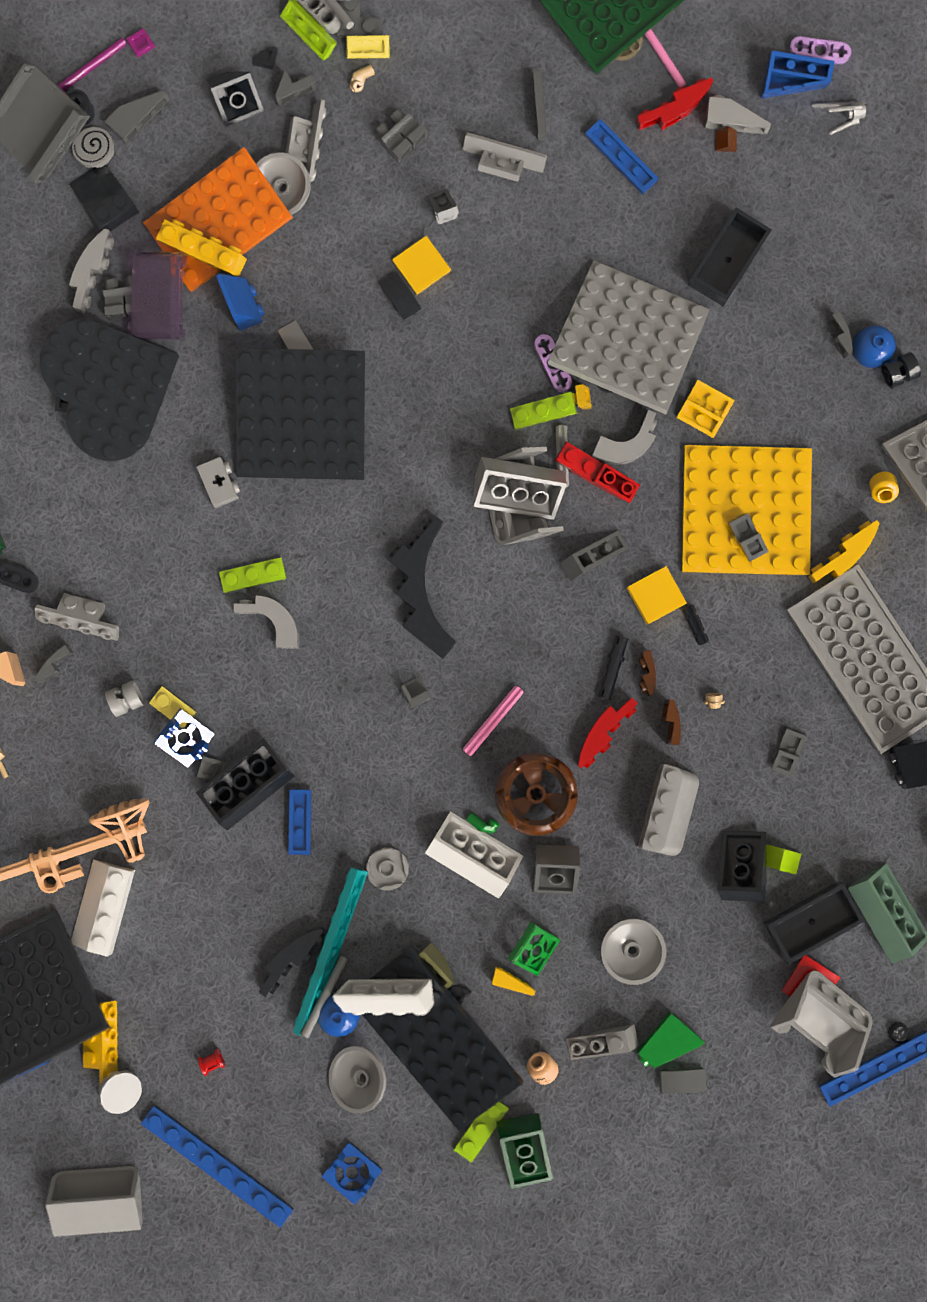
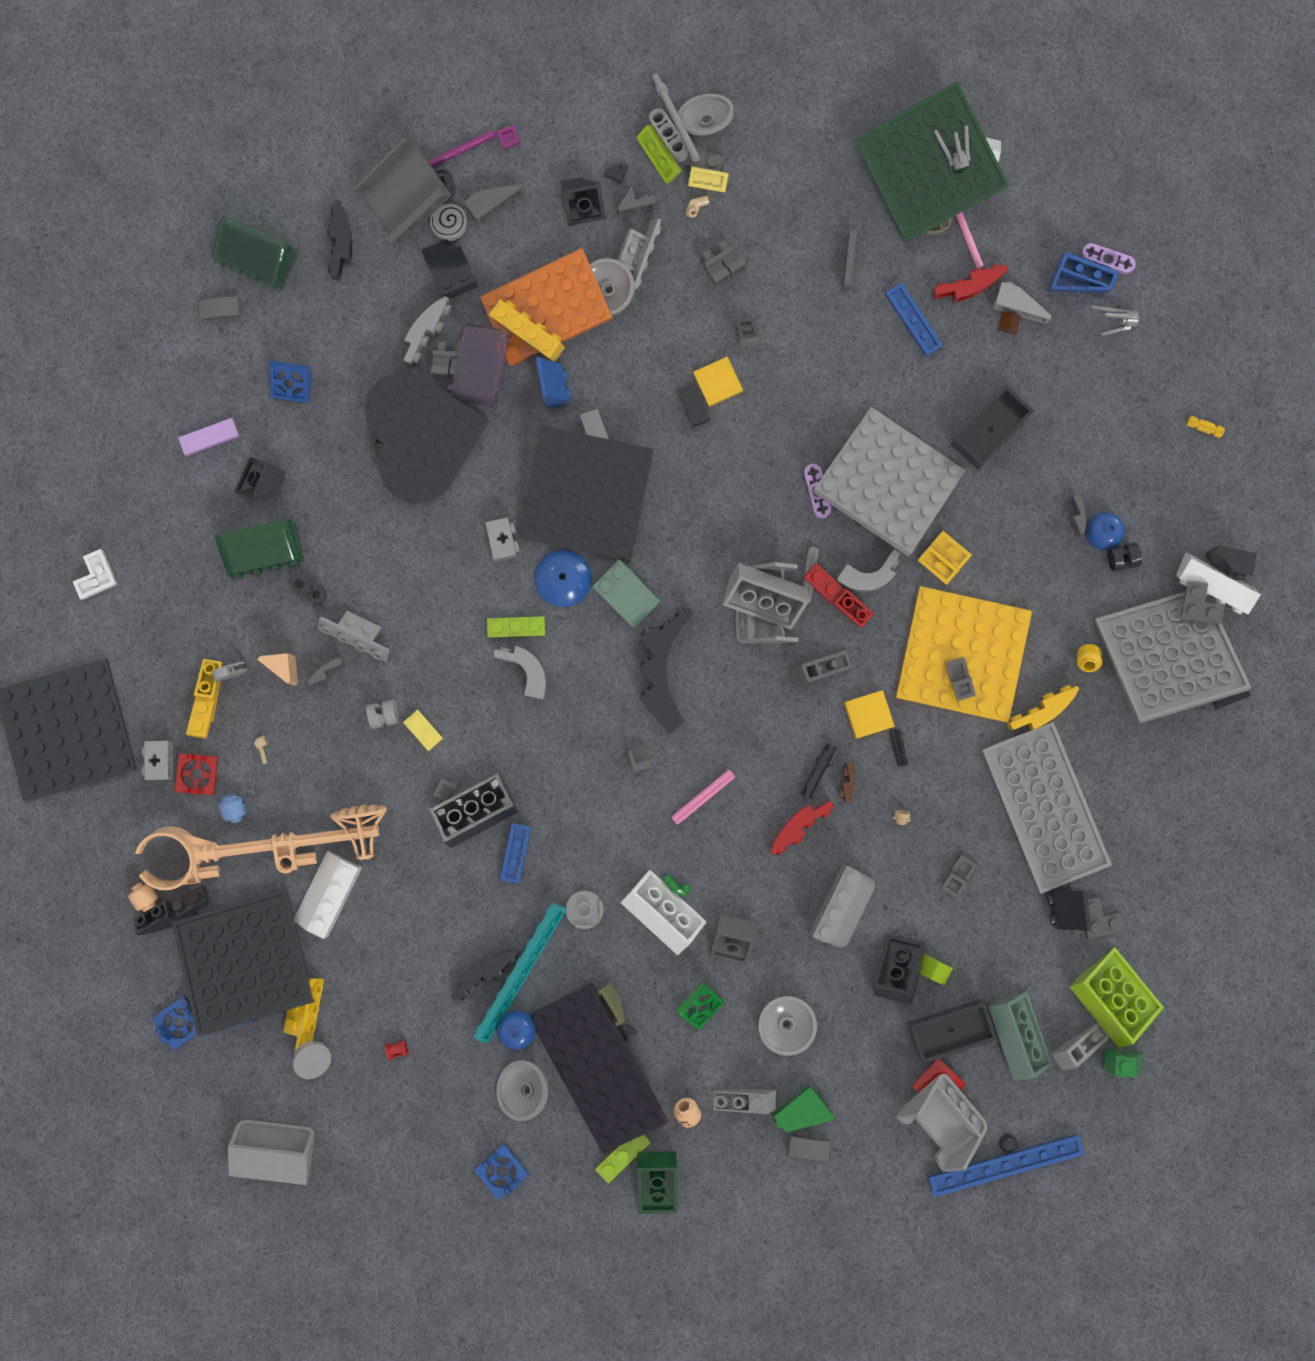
camera: 10 degrees right, 0 degrees up
(172, 728) = (419, 748): piece -> none
(217, 1166) = (384, 1142): blue plate -> none
(304, 522) = (567, 591): none -> blue dish
(324, 996) = (507, 1011): light grey bar -> none
(365, 515) = (626, 594): none -> sand green slope
(385, 996) = (561, 1022): white slope -> none
(502, 158) = (808, 301): light grey bracket -> none
(507, 980) = (671, 1029): yellow slope -> none
(543, 410) = (801, 531): lime plate -> none
(561, 803) = (749, 883): reddish brown wheel -> none
(582, 397) = (837, 526): yellow tile -> none
(671, 716) = (861, 823): reddish brown slope -> none

